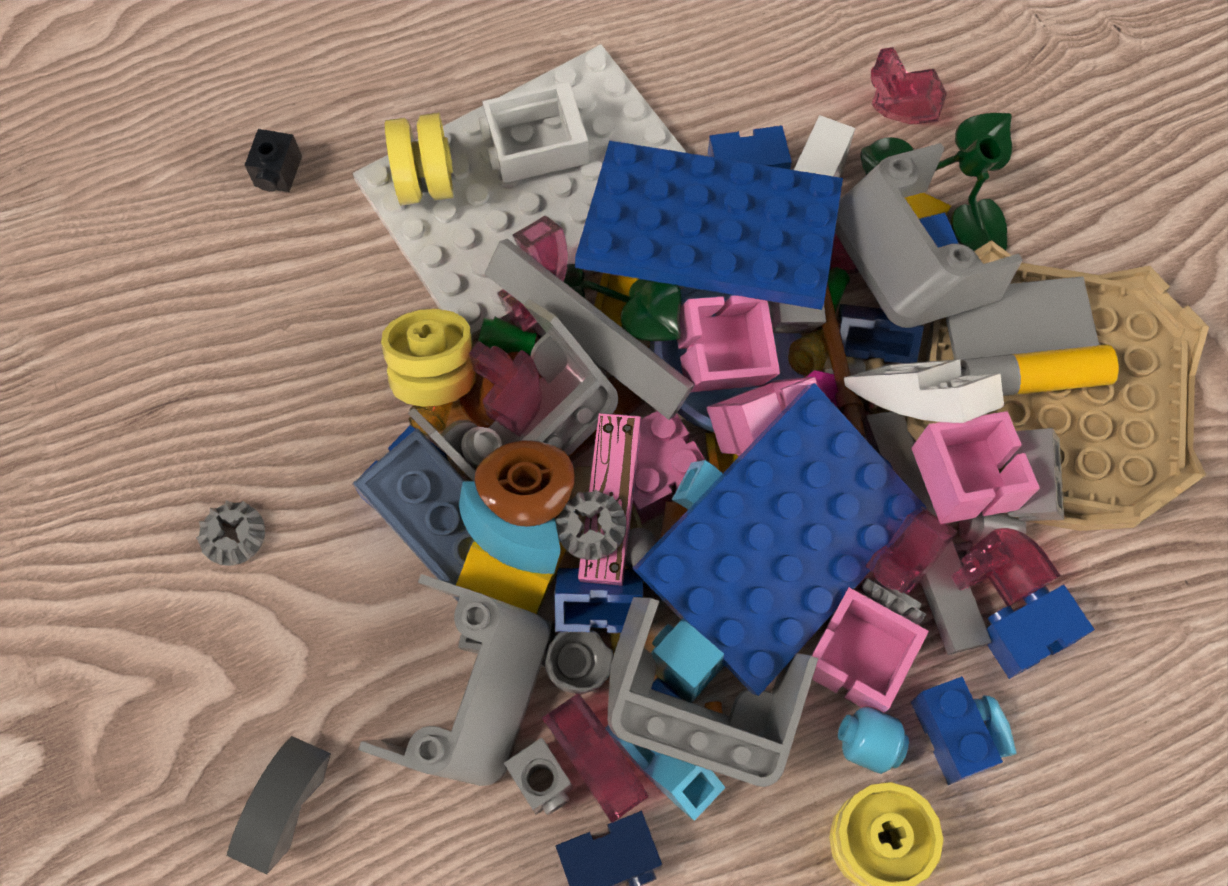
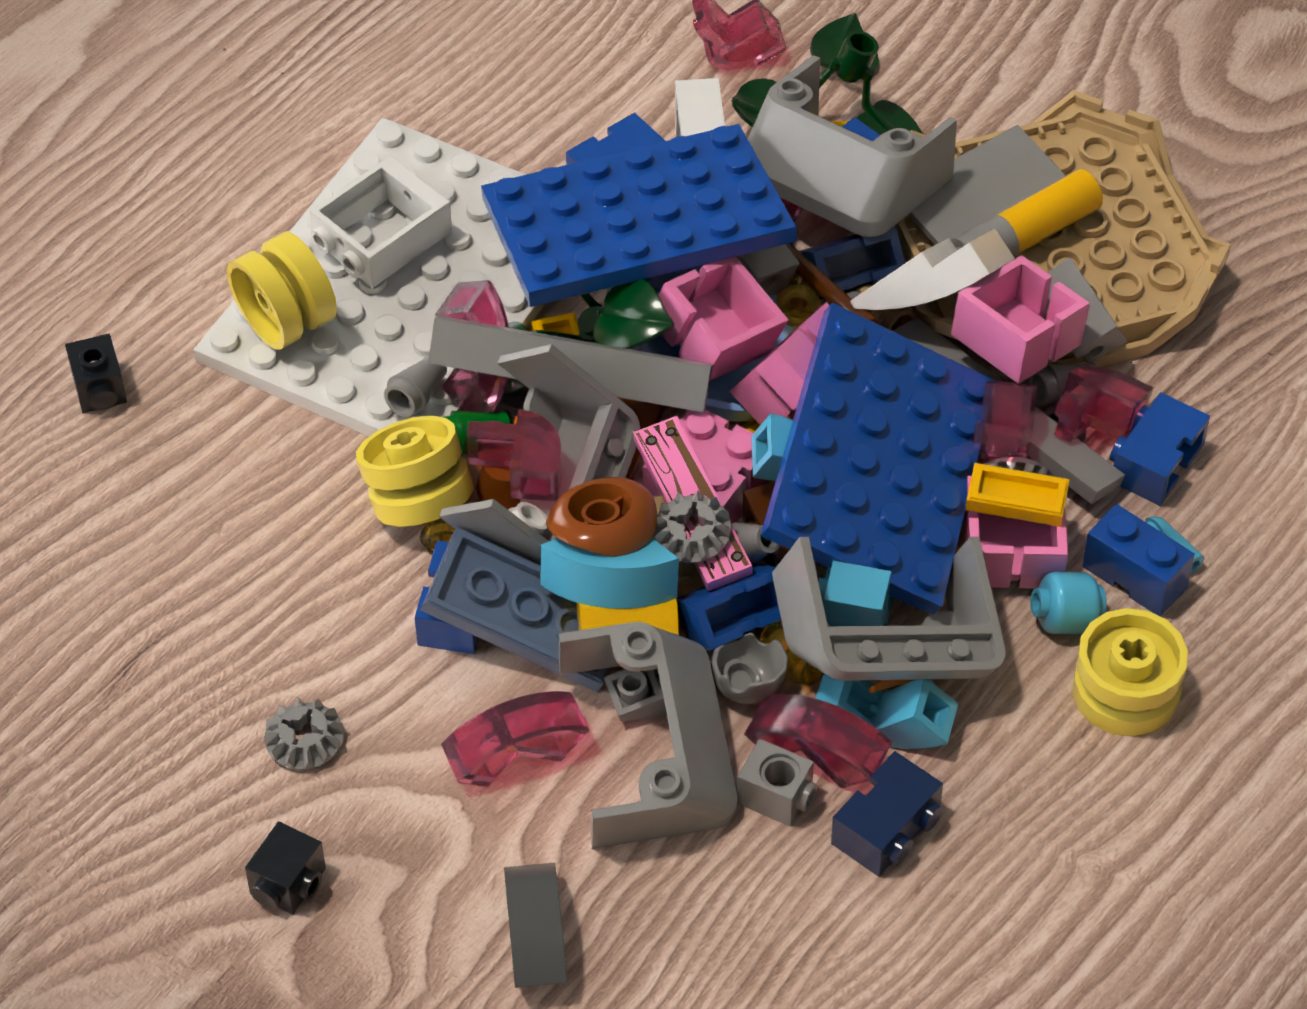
camera: 30 degrees left, 15 degrees down
(138, 647) = (285, 869): none -> black brick
(368, 623) = (527, 726): none -> clear pink brick
(471, 285) = (413, 387): none -> light grey cone
(878, 630) = (1017, 494): none -> yellow tile

